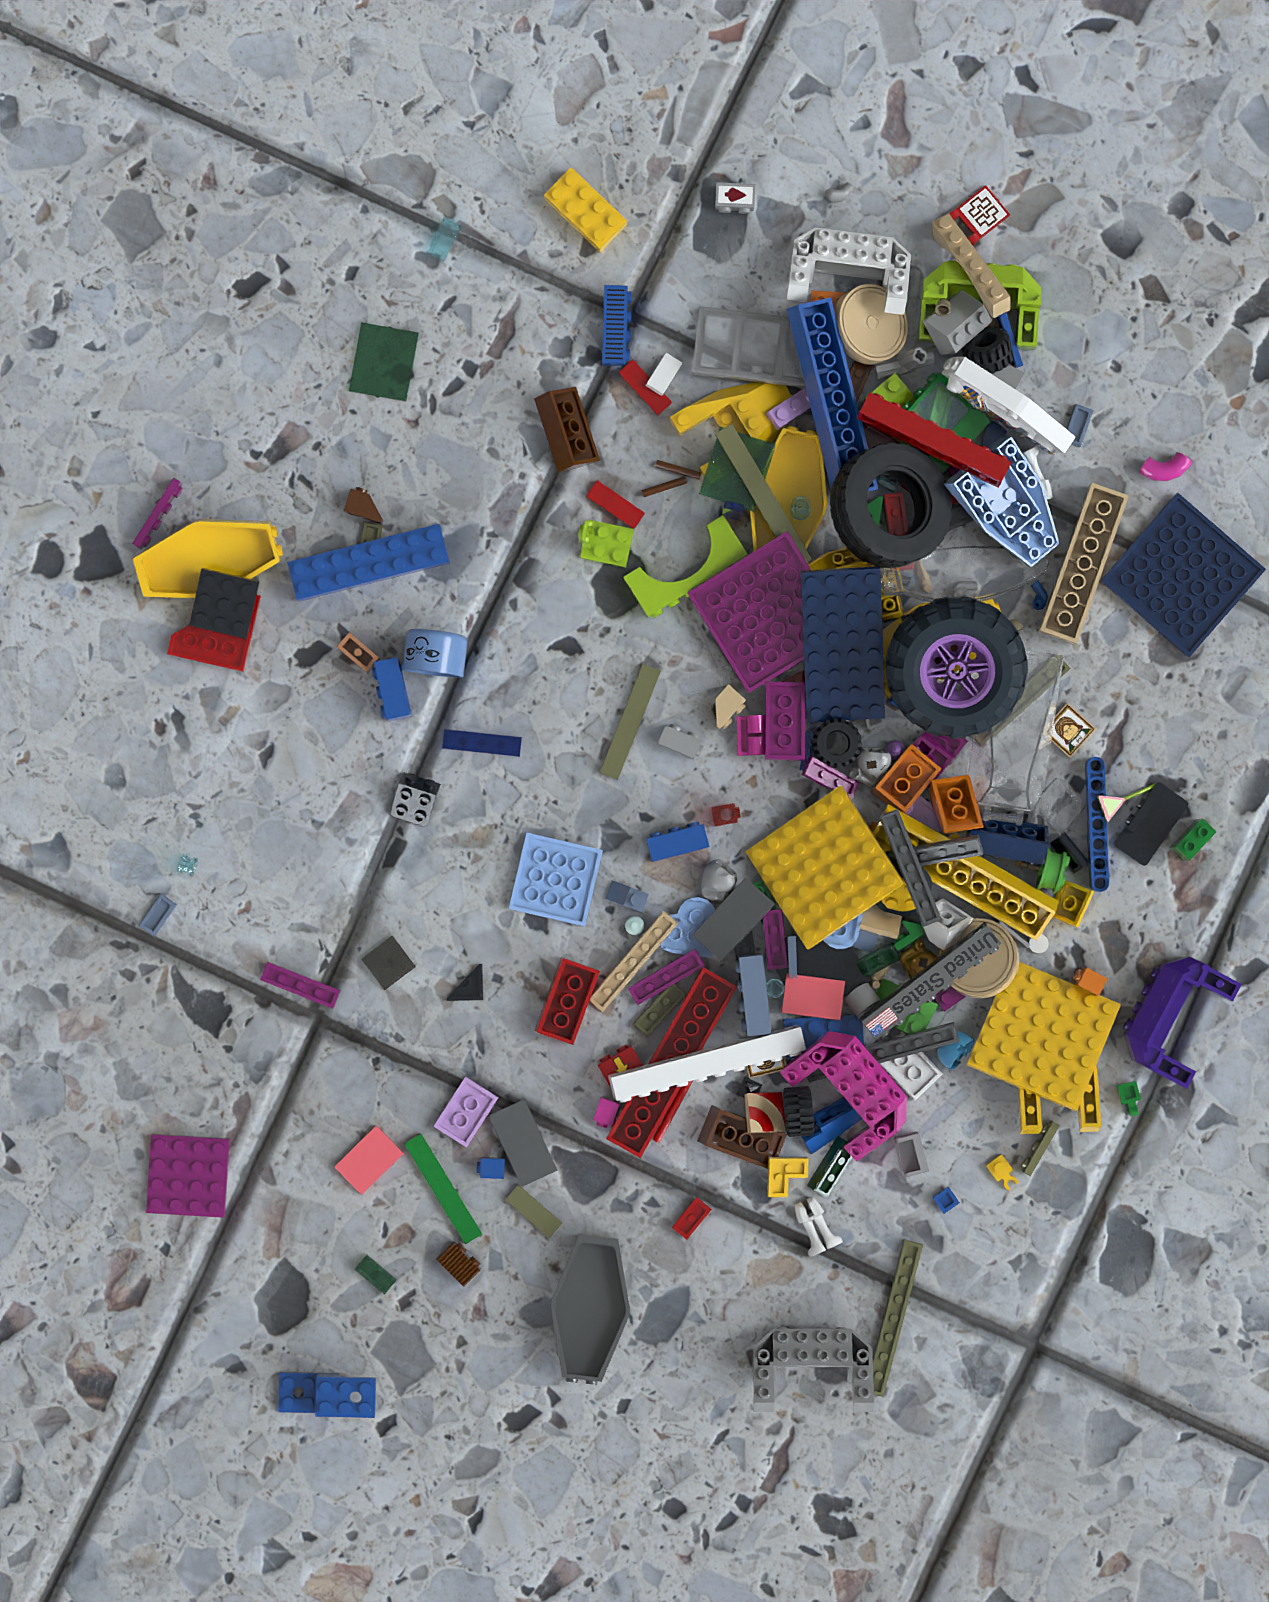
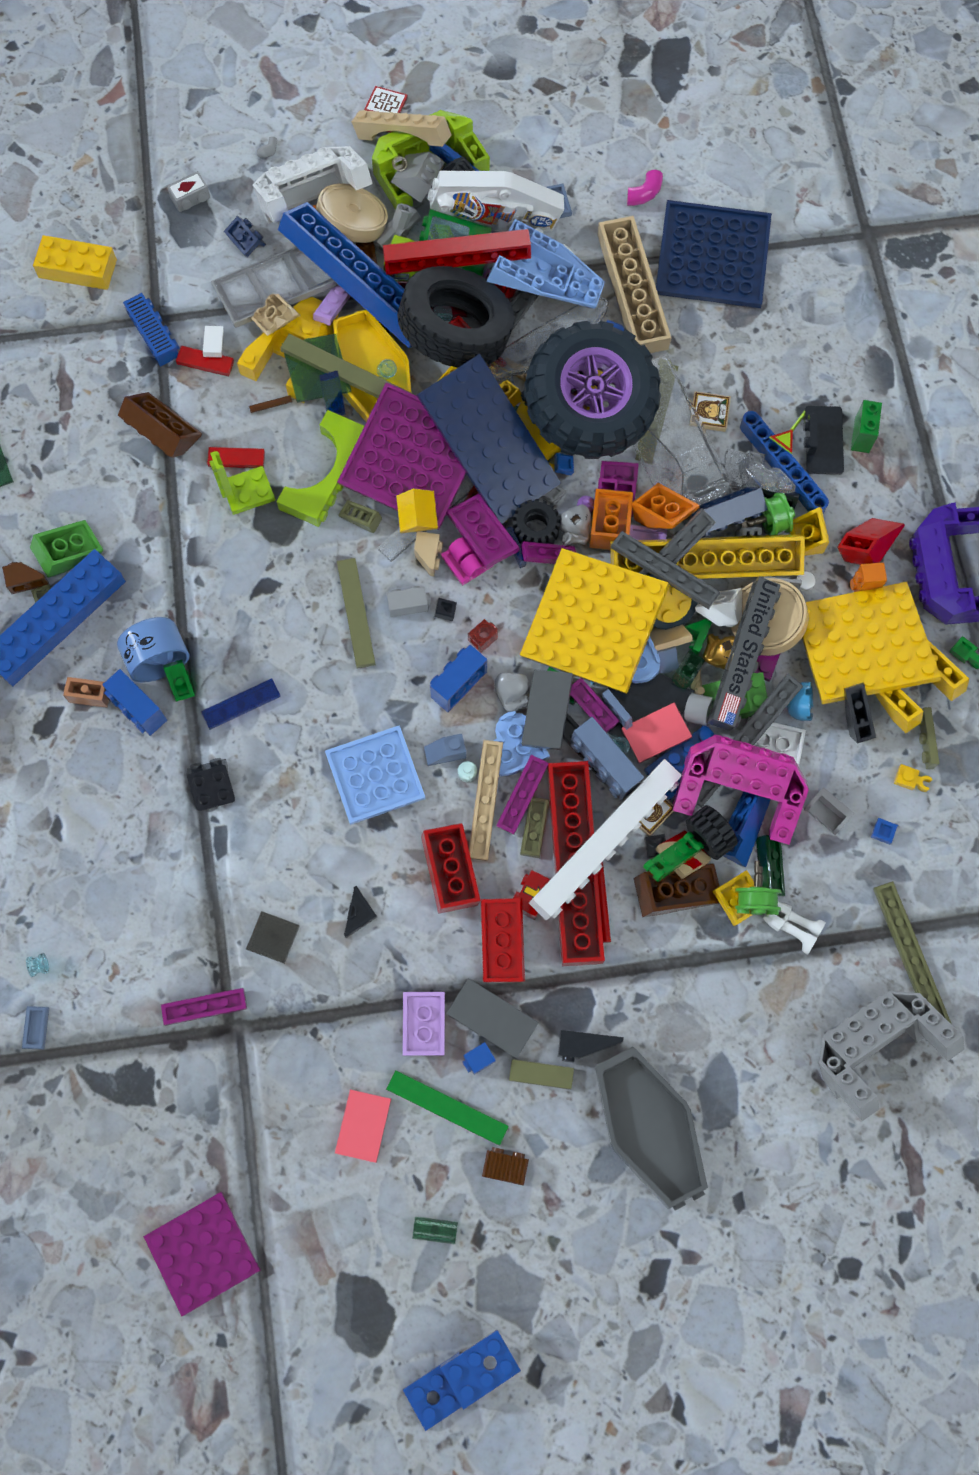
camera: 35 degrees left, 15 degrees down
(416, 500) = (64, 547): none -> bright green slope
(442, 690) = (179, 680): none -> green slope
(571, 1087) = (502, 940): none -> red plate
(578, 1209) = (579, 1044): none -> black slope
(606, 1112) = (547, 943): dark pink brick -> none
(664, 486) = (267, 422): reddish brown piece -> none
(691, 1218) = (683, 988): red plate -> none
(698, 646) = (370, 522): none -> olive slope
(708, 769) = (445, 609): none -> black tile
(732, 391) = (274, 314): none -> tan slope
(738, 668) = (417, 511): none -> yellow slope
(752, 1112) = (673, 857): none -> green plate
(759, 278) = (243, 235): none -> dark blue bracket
(796, 1189) = (758, 899): none -> bright green wheel
(991, 1094) = (858, 714): none -> black slope
(1014, 872) = (753, 531): none -> dark grey tile
(1068, 836) = (771, 480): none -> clear slope
(1118, 946) = (869, 541): none -> red slope

